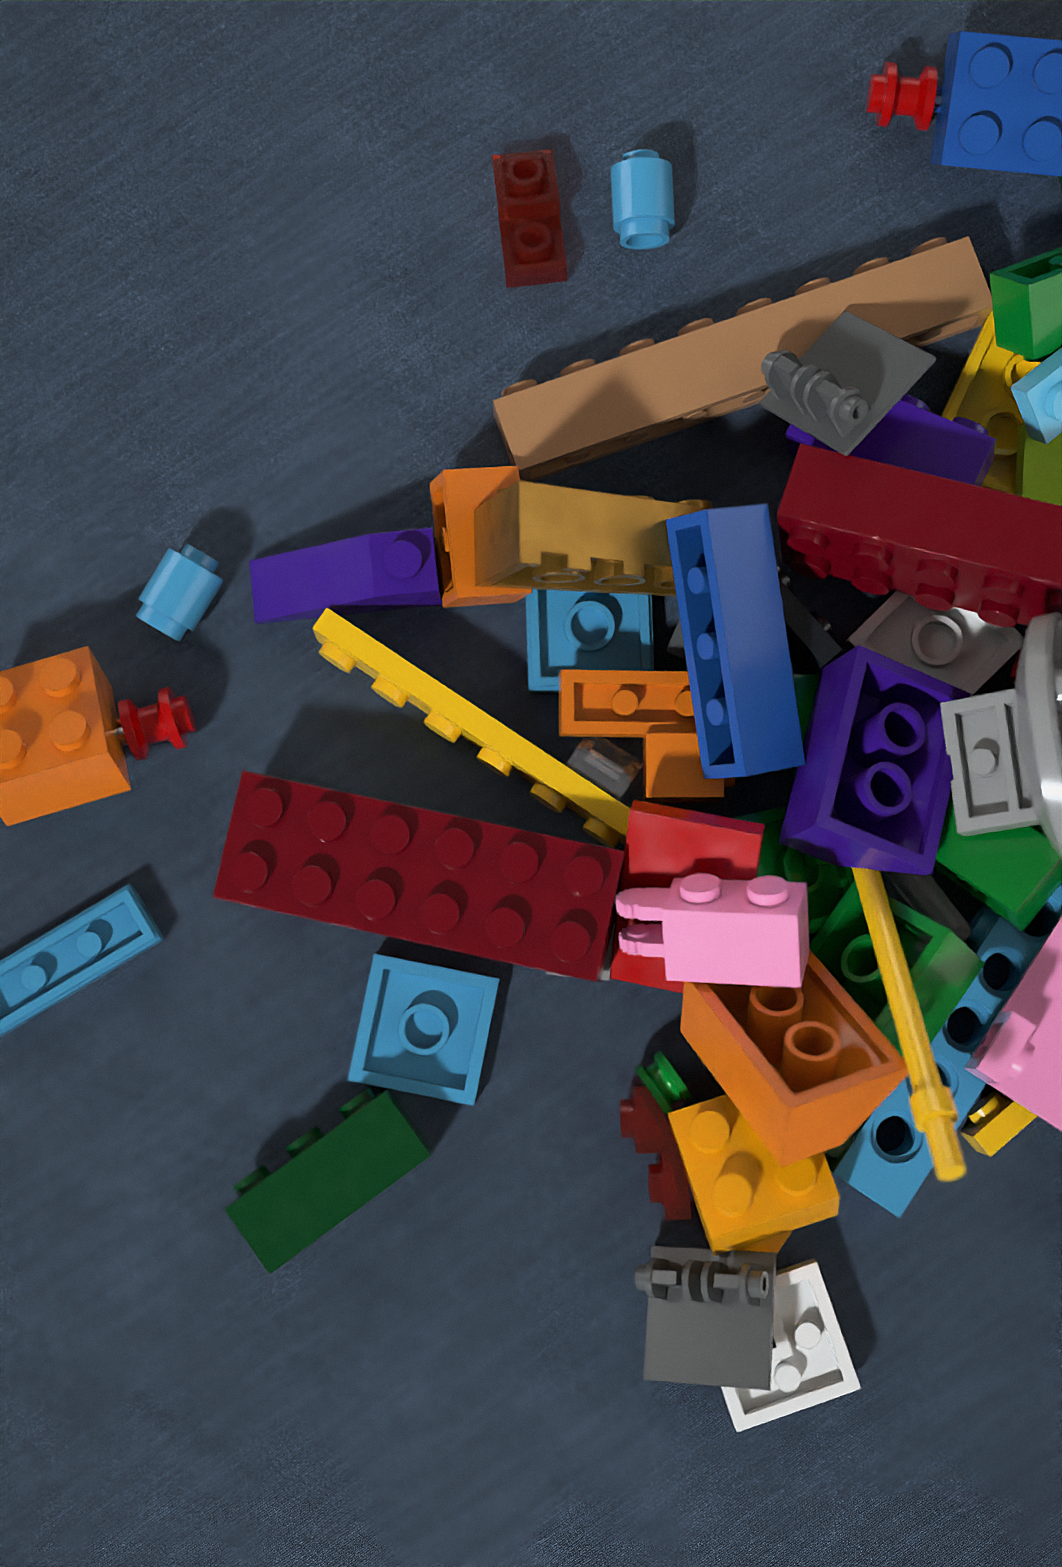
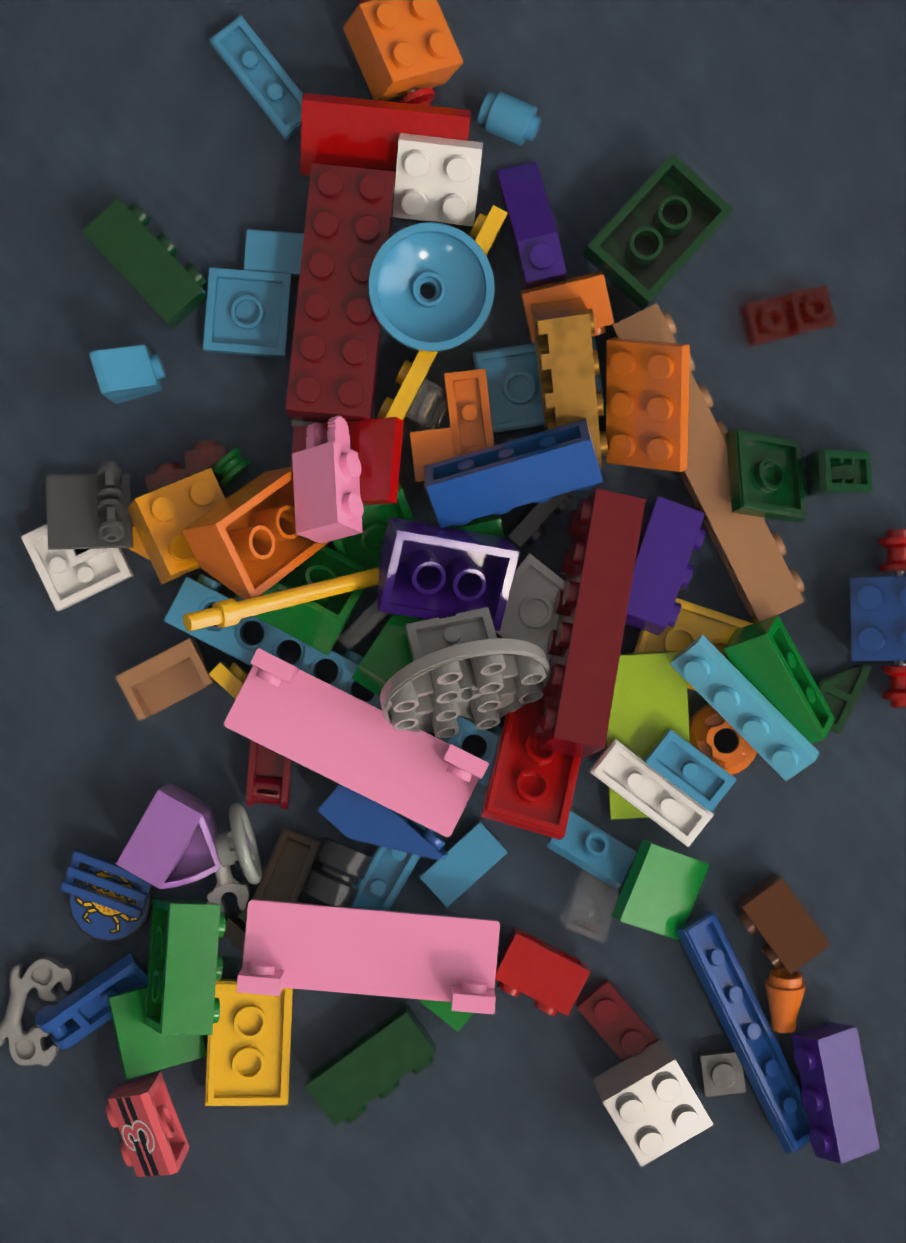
camera: 85 degrees right, 5 degrees up
(197, 737) = (368, 131): none -> red tile
(259, 708) = (437, 179): none -> white plate
(336, 974) = (273, 252): none -> dark azure tile
(385, 386) = (657, 231): none -> dark green brick
(441, 691) = (455, 271): none -> dark azure dish
(499, 1227) = (127, 372): none -> dark azure slope
(642, 199) = (807, 388): dark azure brick -> none
(645, 429) = (647, 404): none -> orange plate
(772, 271) = (766, 476): none -> dark green tile
(774, 174) = (838, 472): none -> dark green slope
(842, 381) = (692, 523): dark grey hinge -> none
(984, 1230) = (166, 679): none -> medium nougat panel

